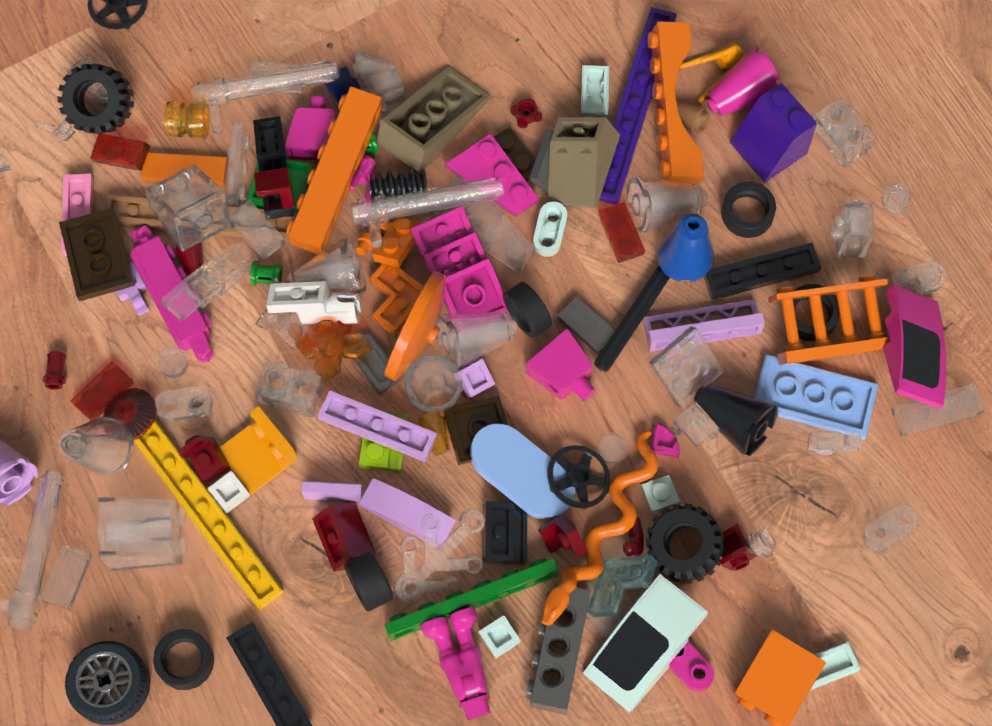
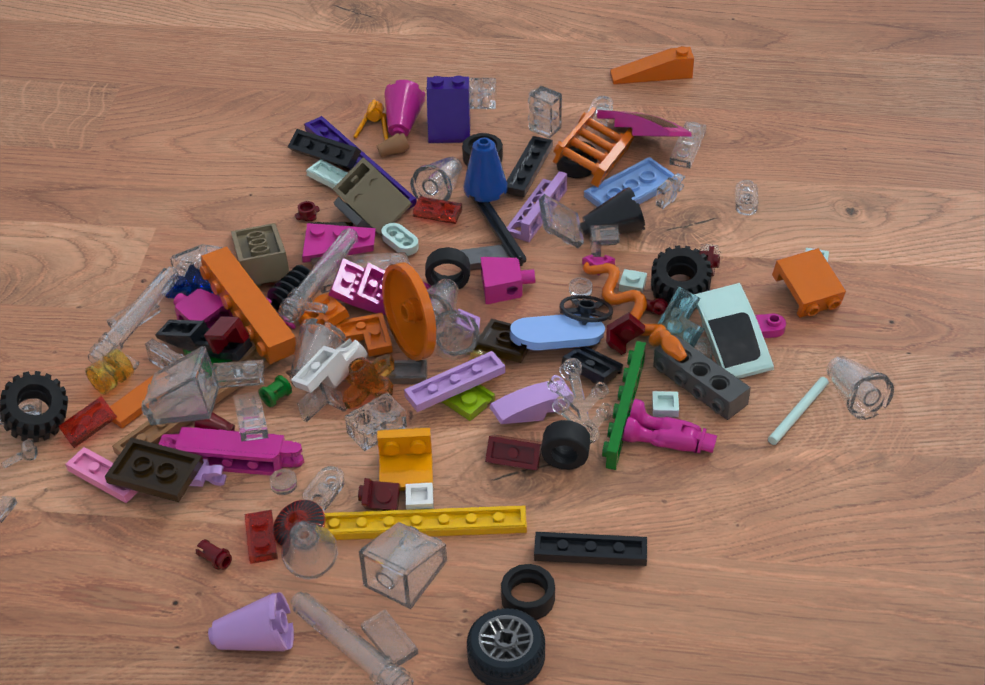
camera: 55 degrees left, 25 degrees down
(332, 491) = (477, 436): lavender tile -> none
(621, 59) = (324, 148): none -> black plate
(680, 155) = (348, 126): orange arch -> none

